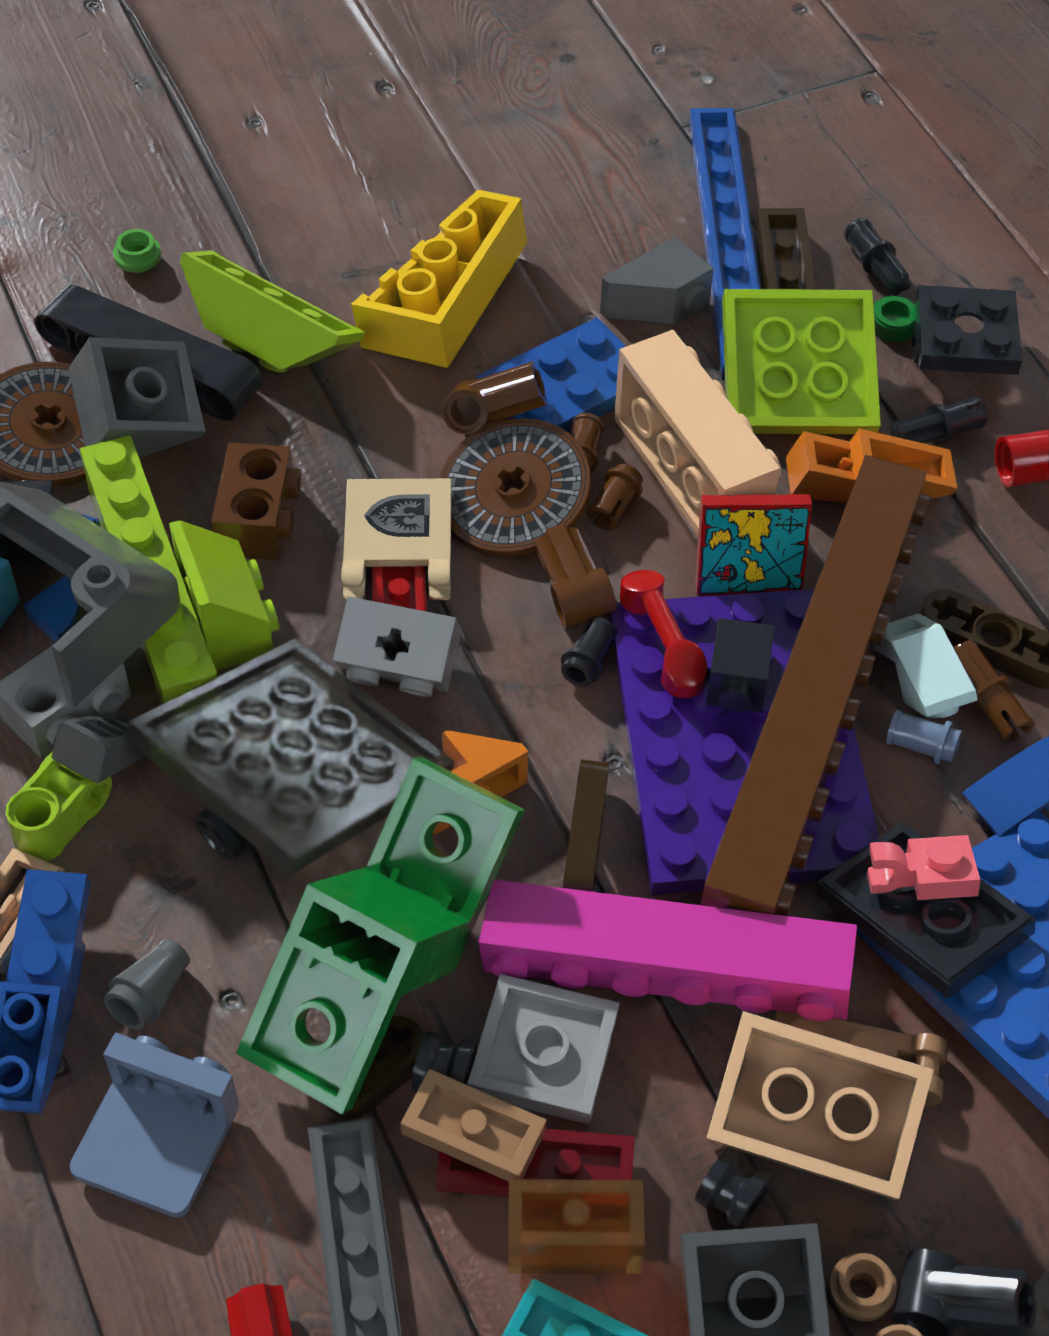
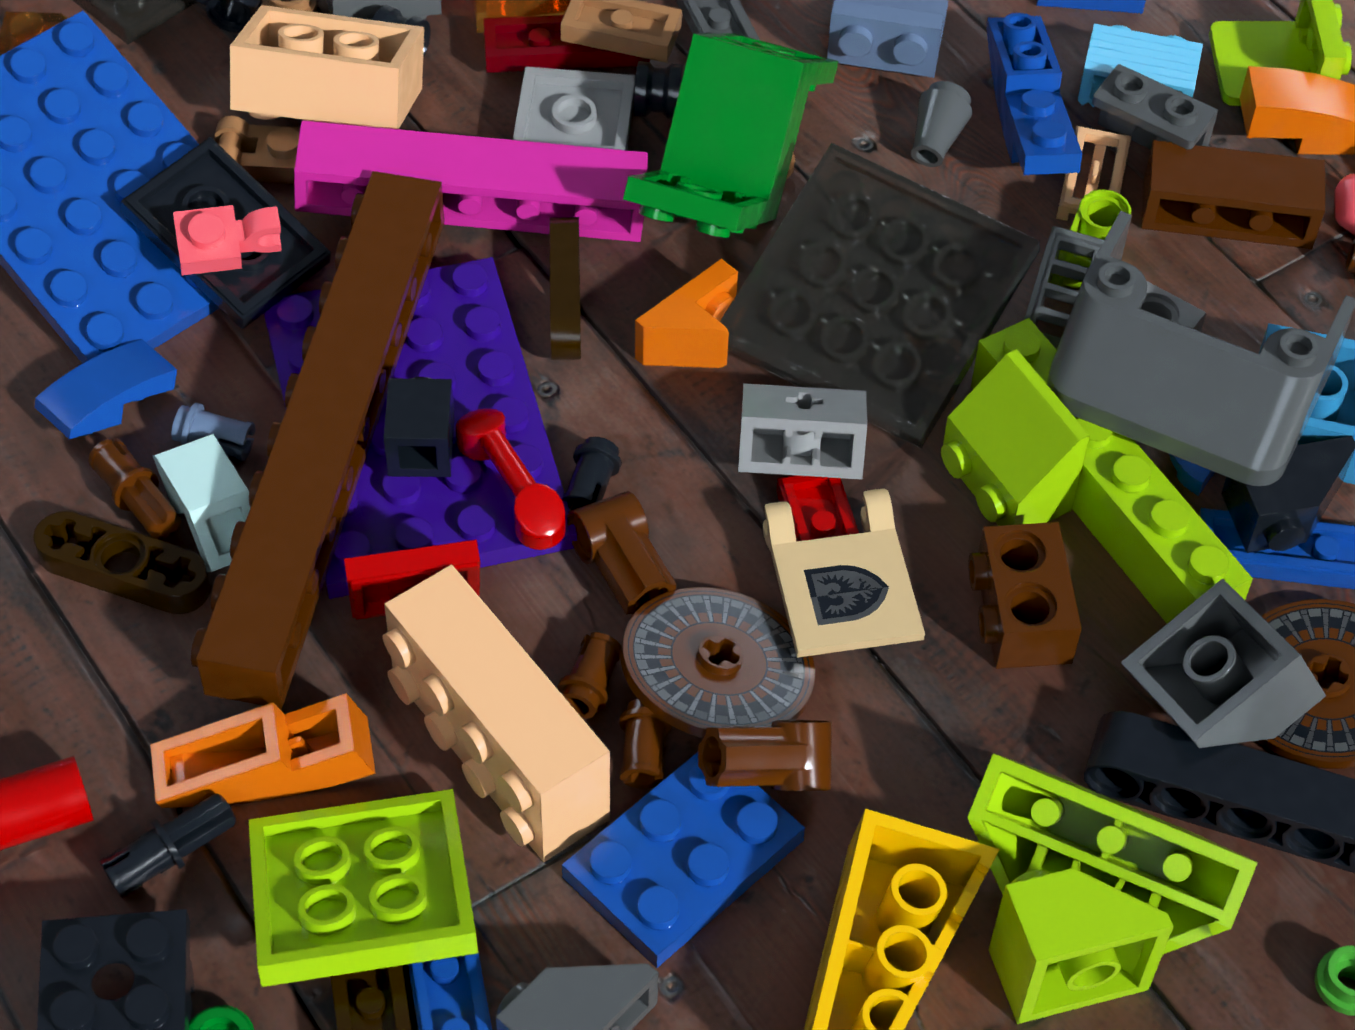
camera: 170 degrees right, 0 degrees up
(317, 252) = (1073, 943): none -> lime slope

